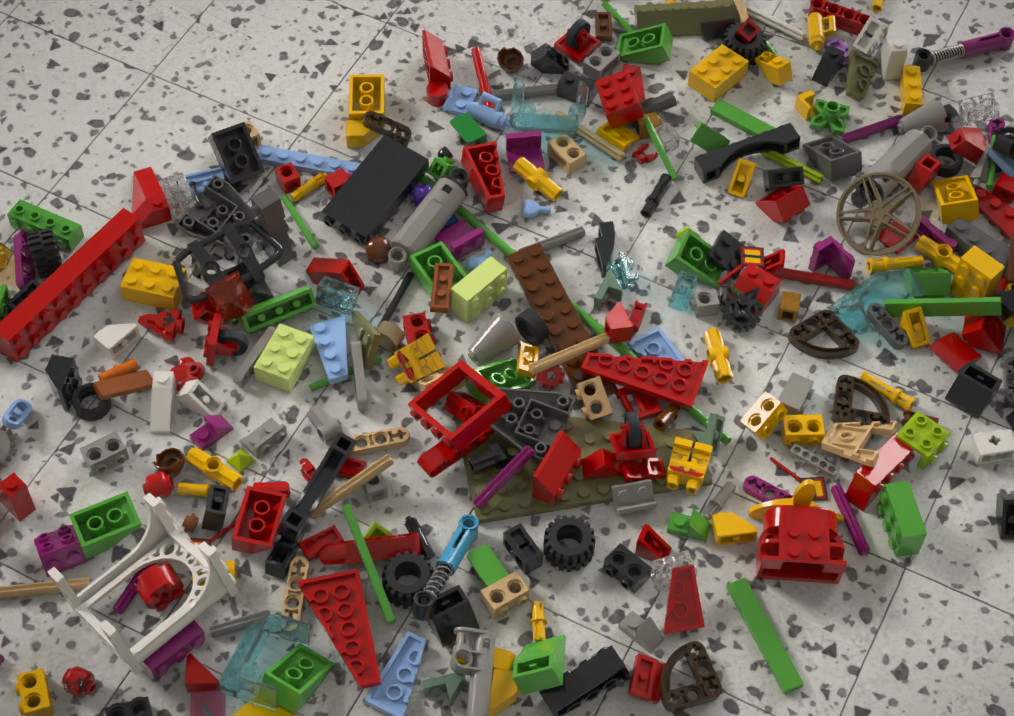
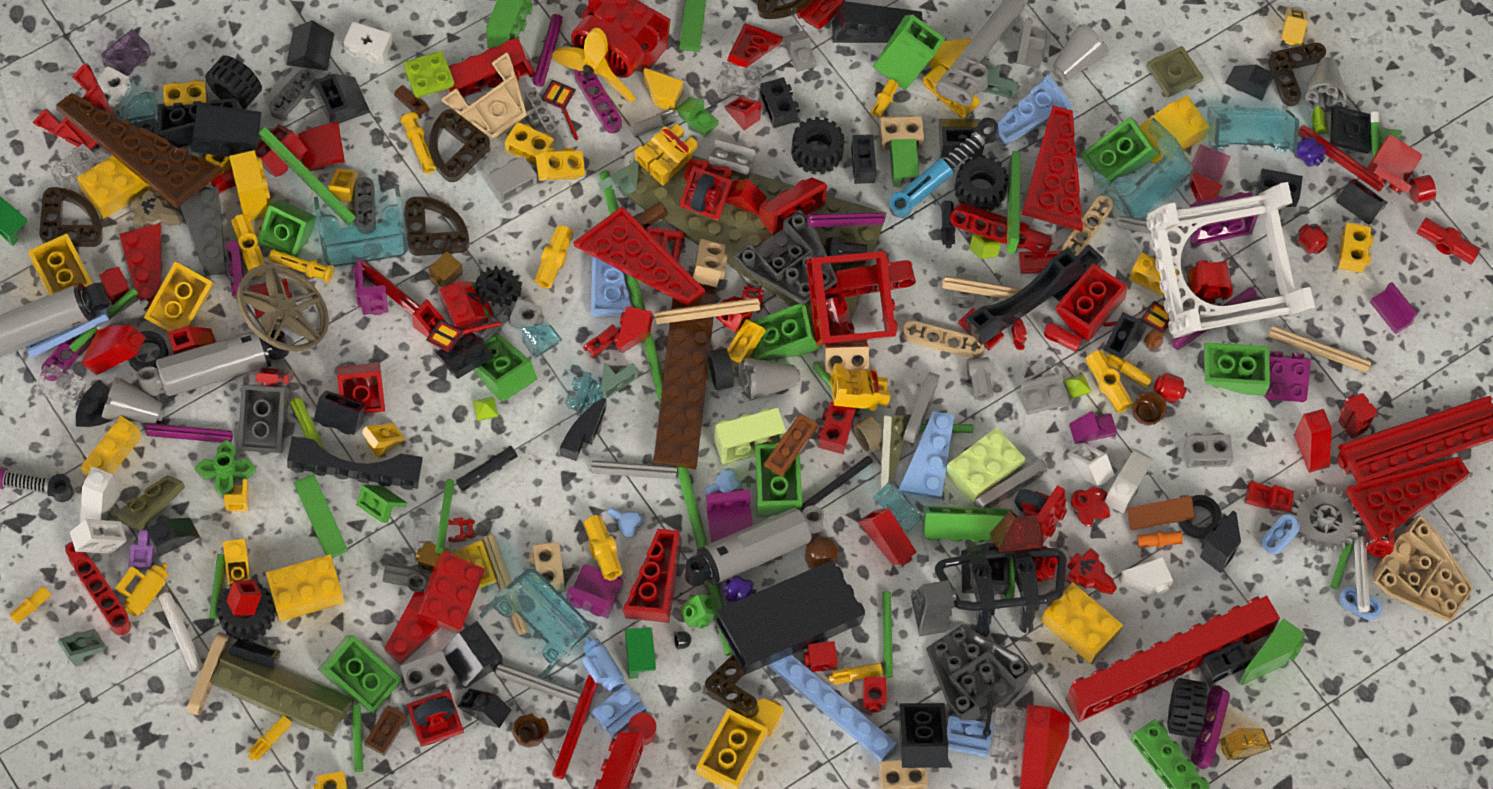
camera: 155 degrees left, 10 degrees up
(37, 447) = (1268, 497): none -> red slope
(844, 173) = (272, 376): none -> red plate

